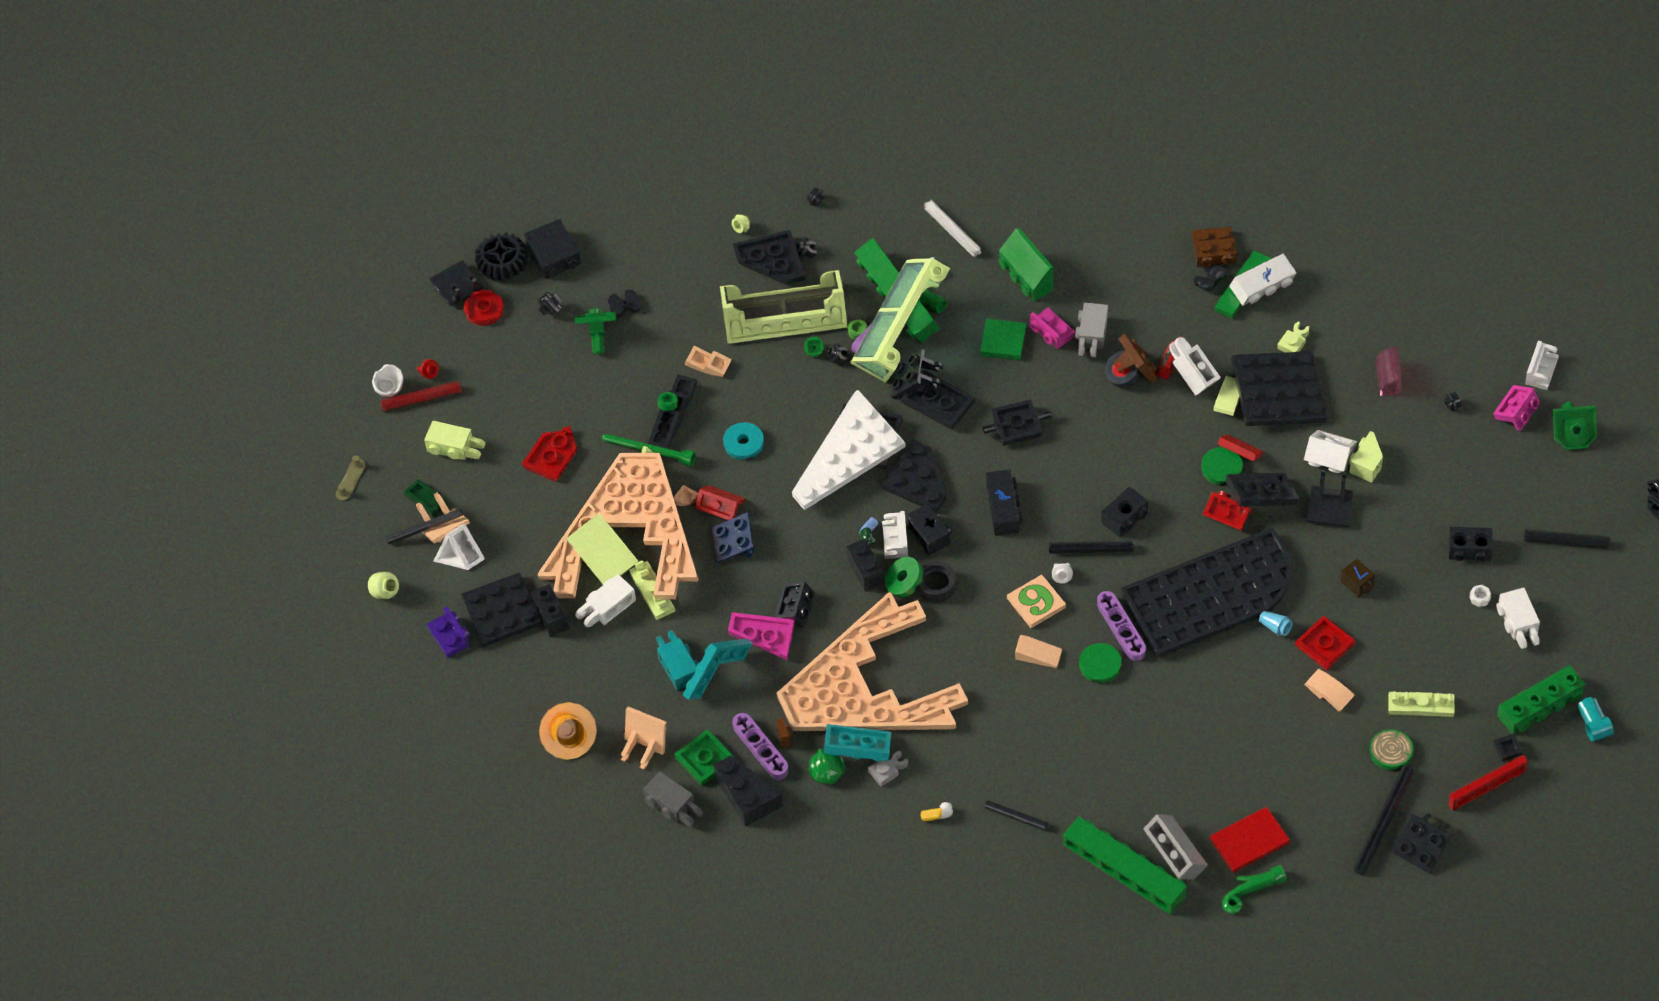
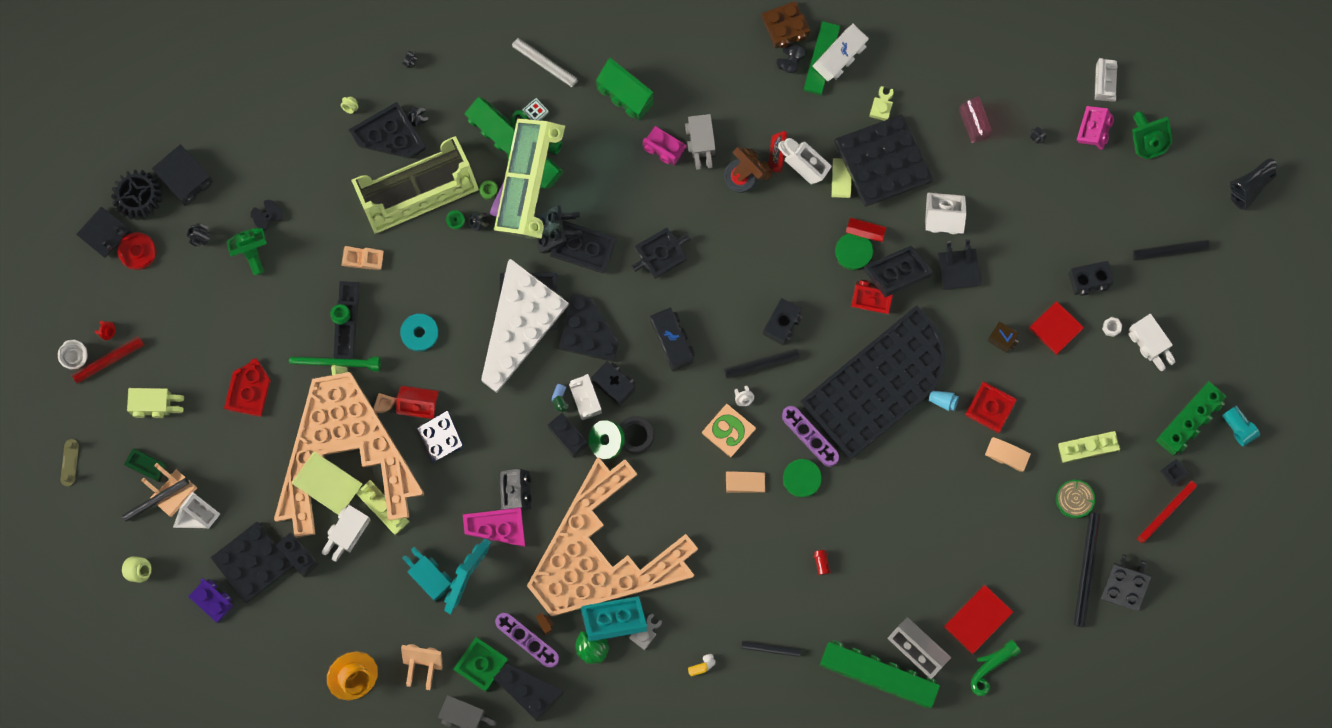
camera: 20 degrees left, 20 degrees up
(1003, 339) = (623, 168): green tile -> none
(1096, 745) = (822, 562): none -> red pin
(1367, 460) = (981, 213): yellowish green slope -> none
(1419, 584) = (1056, 328): none -> red tile

